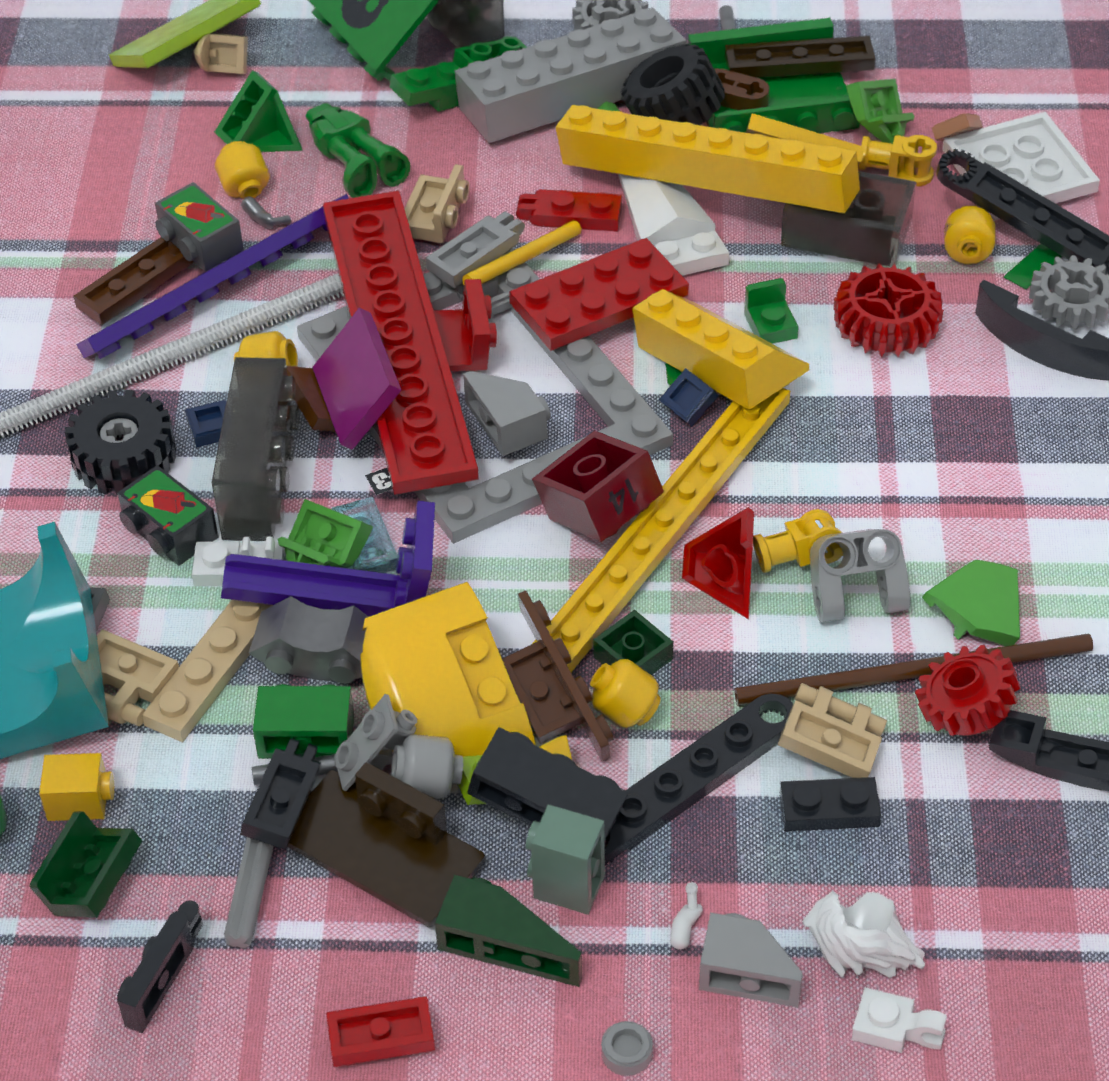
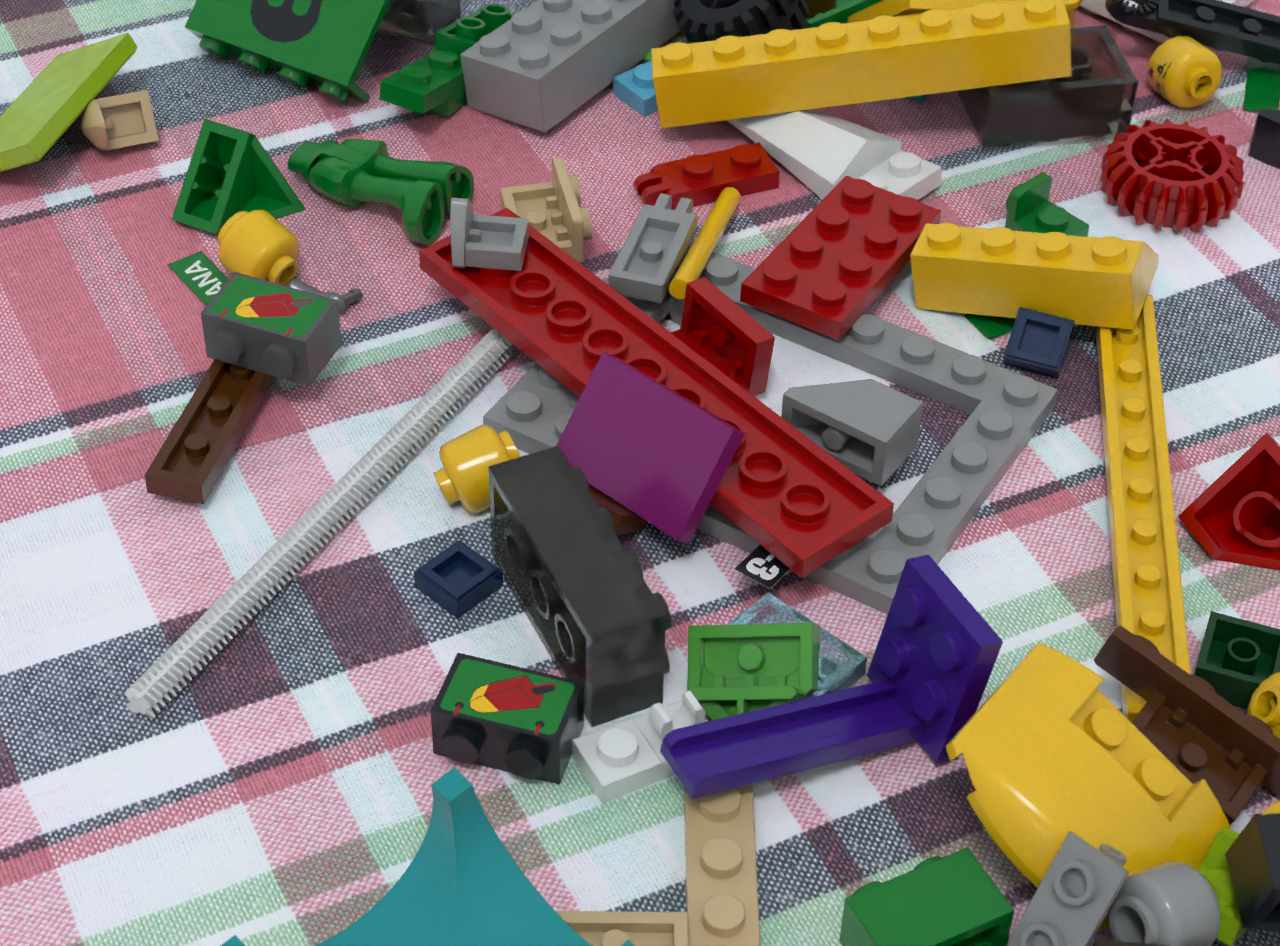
camera: 30 degrees left, 5 degrees down
(113, 463) = (359, 677): black bush -> none
(204, 285) = (314, 407): dark purple plate -> none
(207, 179) = (200, 275): none -> green sticker
(310, 641) = (854, 809): flat silver brick -> none
(360, 207) = (486, 239): none -> light grey tile
(598, 485) = (1050, 475): dark red brick -> none

